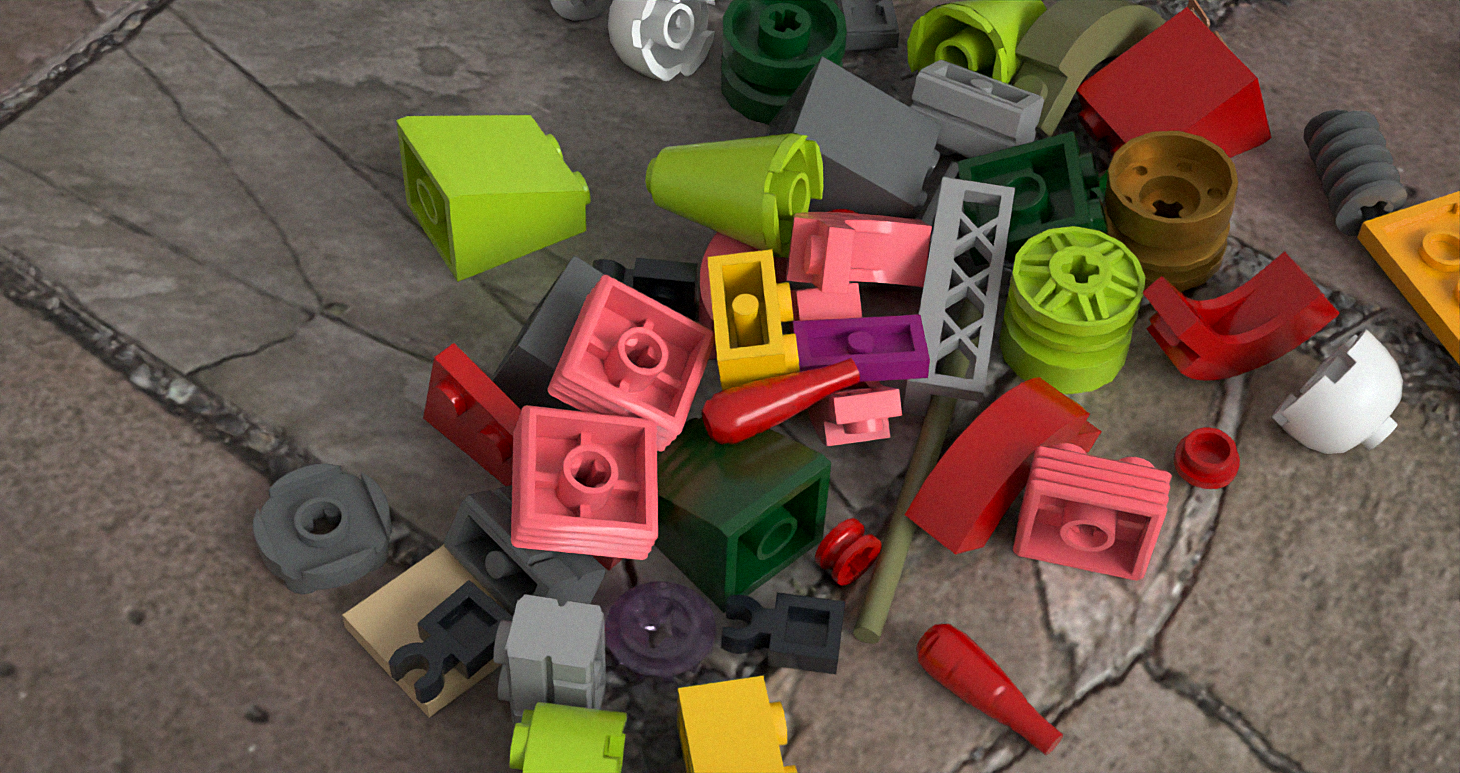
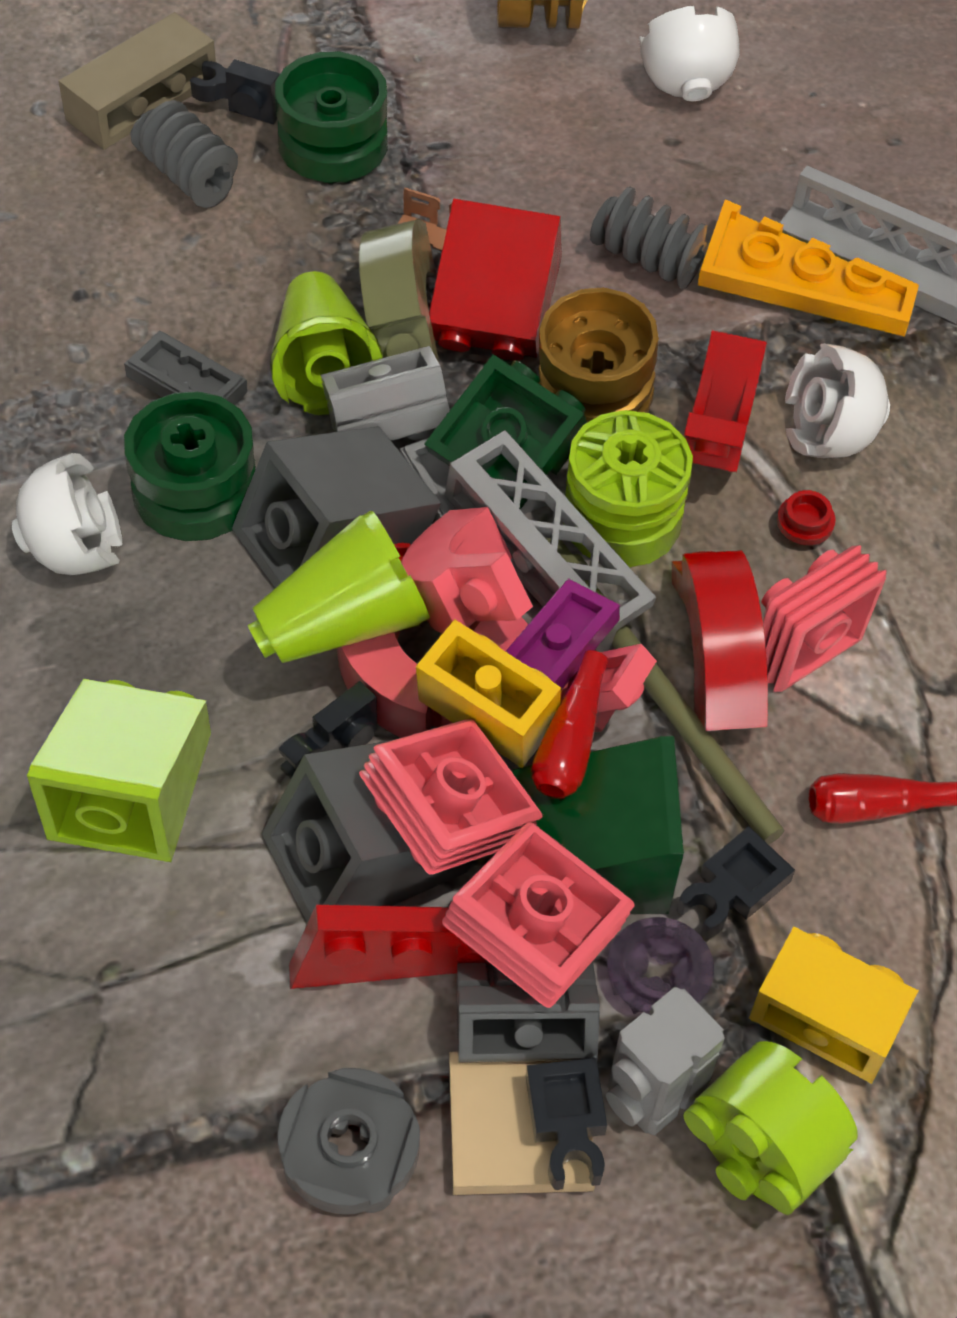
camera: 50 degrees left, 5 degrees up
(847, 551) = (701, 791): red bush -> none

